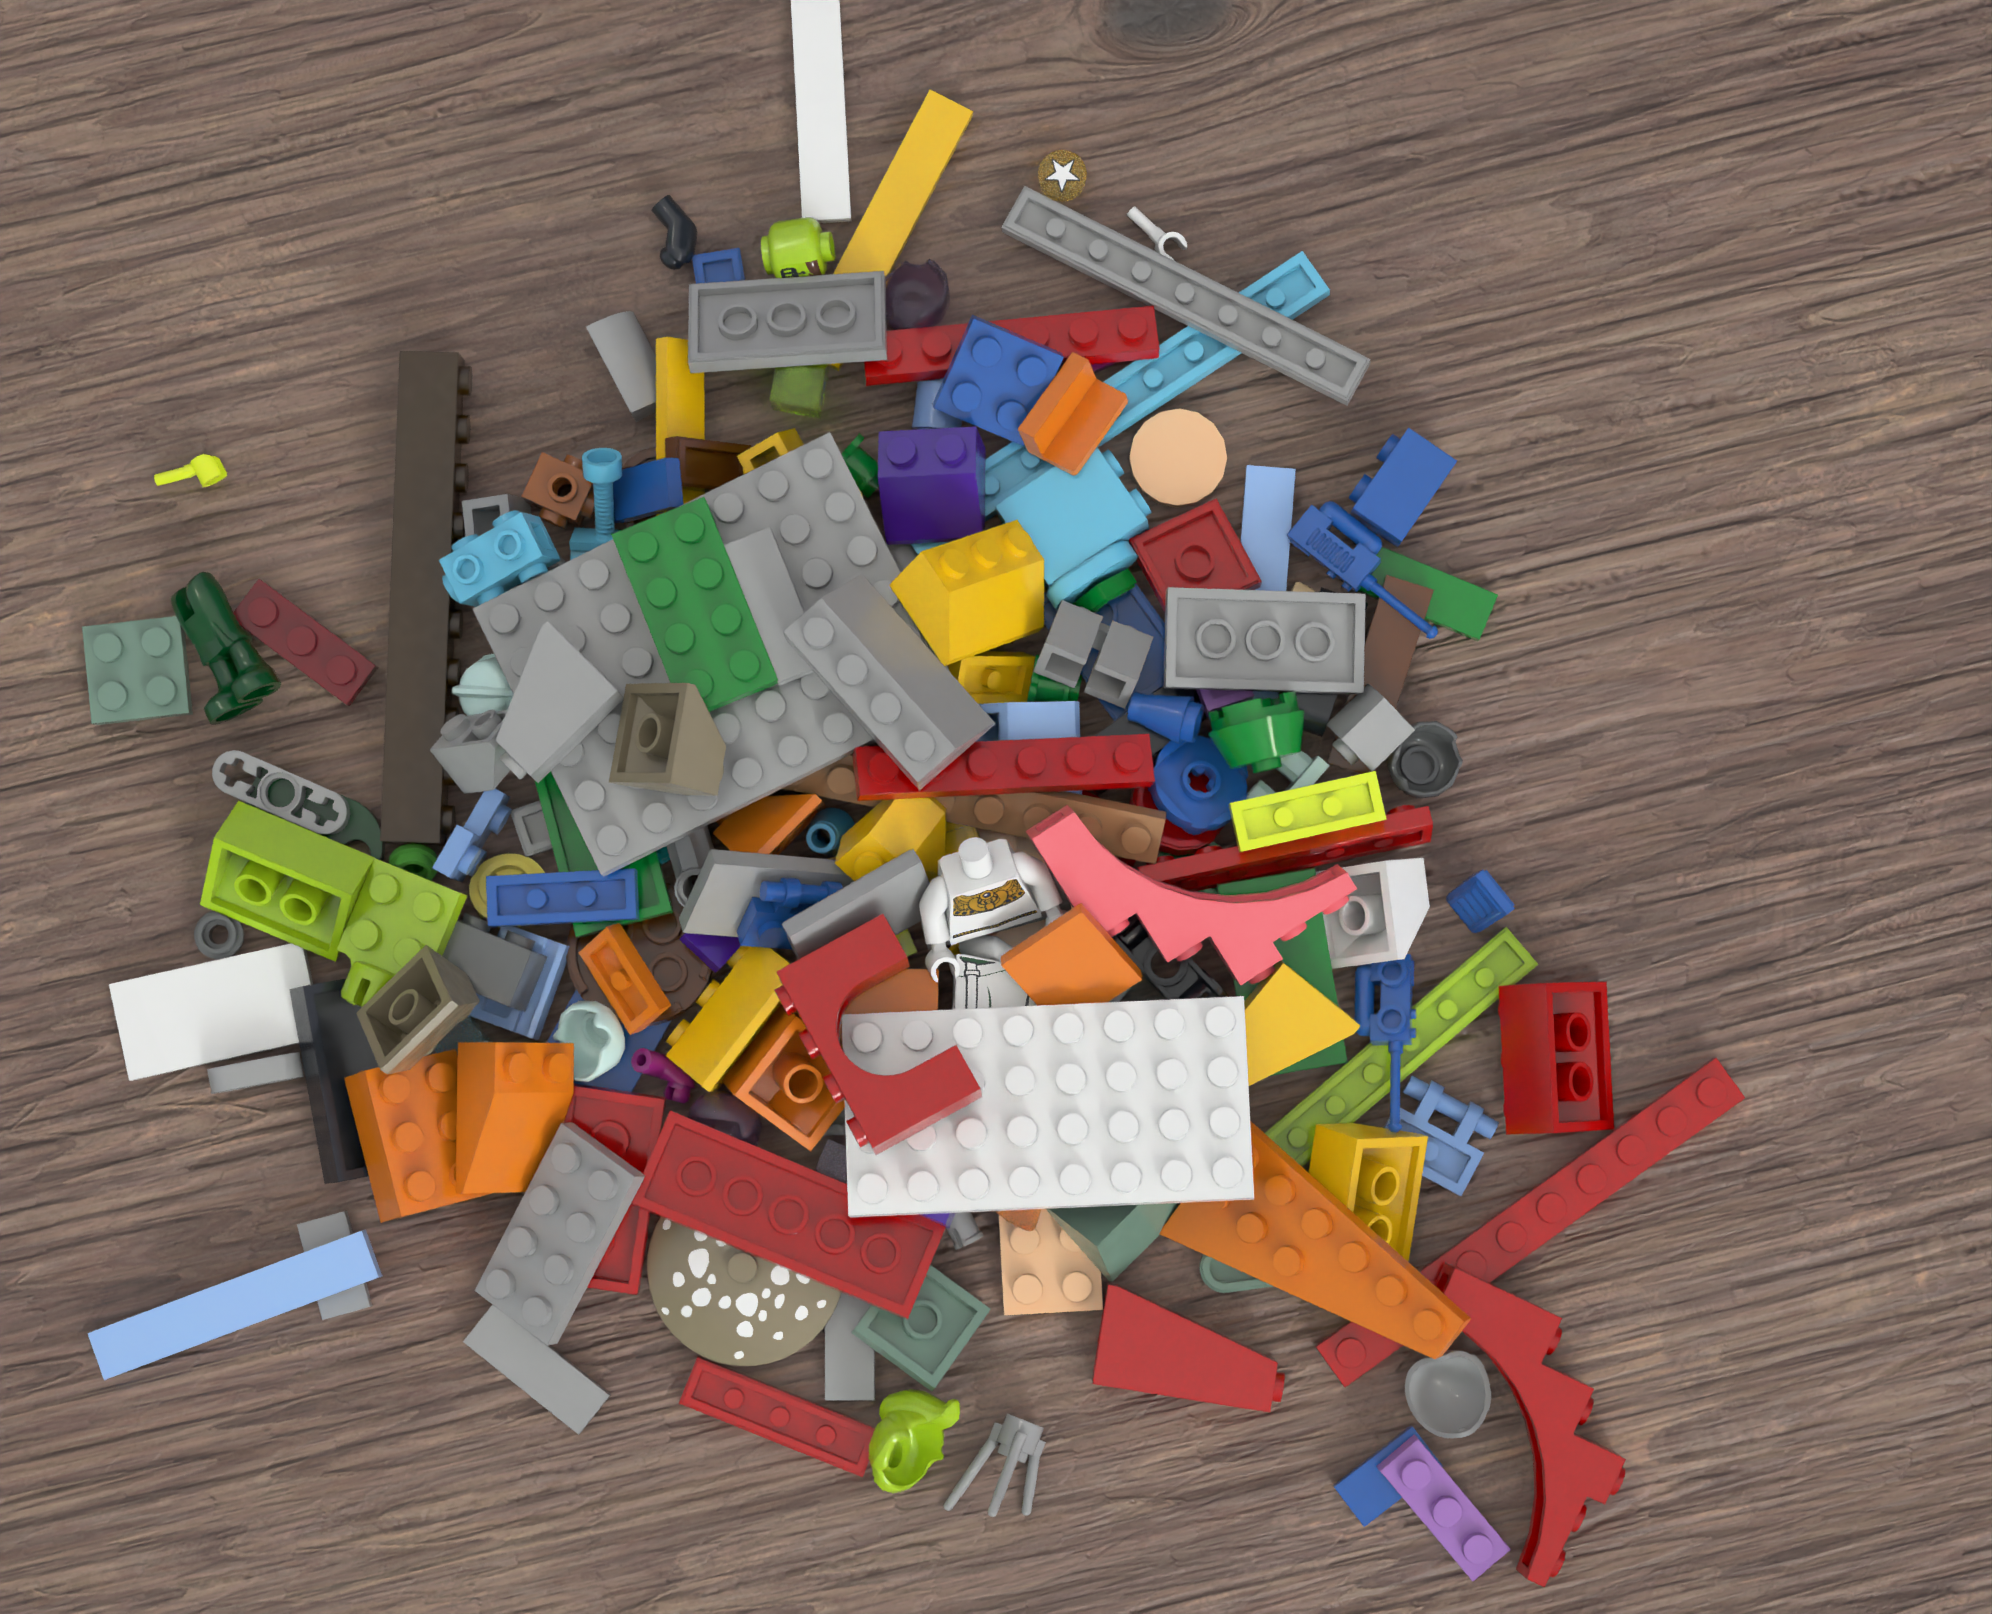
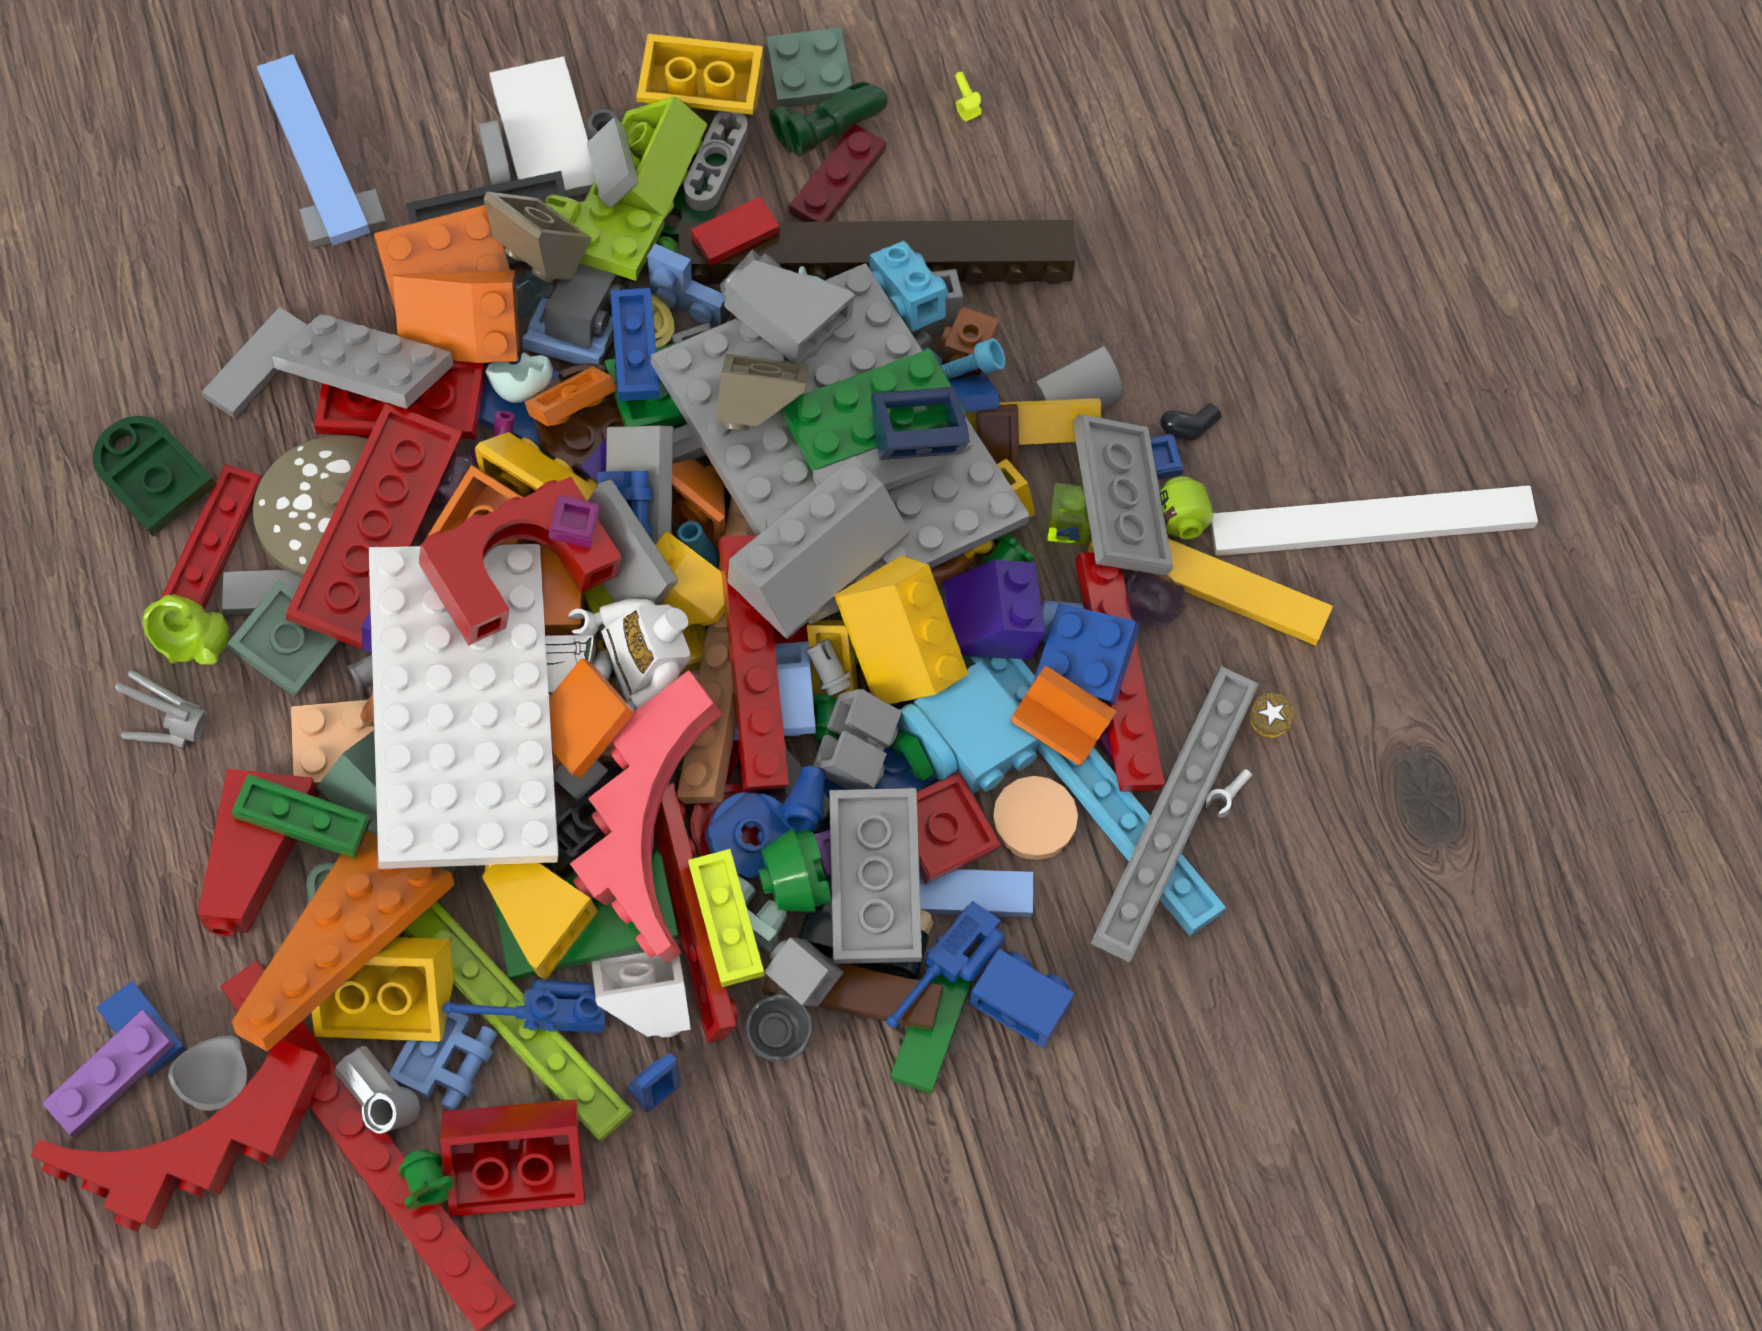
camera: 80 degrees right, 20 degrees down
(166, 807) = (702, 73): none -> yellow slope
(294, 921) = (612, 162): none -> light grey tile
(401, 770) = (735, 231): none -> red tile
(689, 1493) = (151, 475): none -> dark green tile
(756, 551) = (924, 441): none -> dark blue tile
(841, 967) = (574, 521): none -> magenta tile
(1015, 676) = (829, 667): none -> light grey pin
(1159, 1295) = (301, 816): none -> green tile
(1492, 1197) = (375, 1090): none -> light grey piece
(1586, 1152) = (424, 1179): none -> green brick

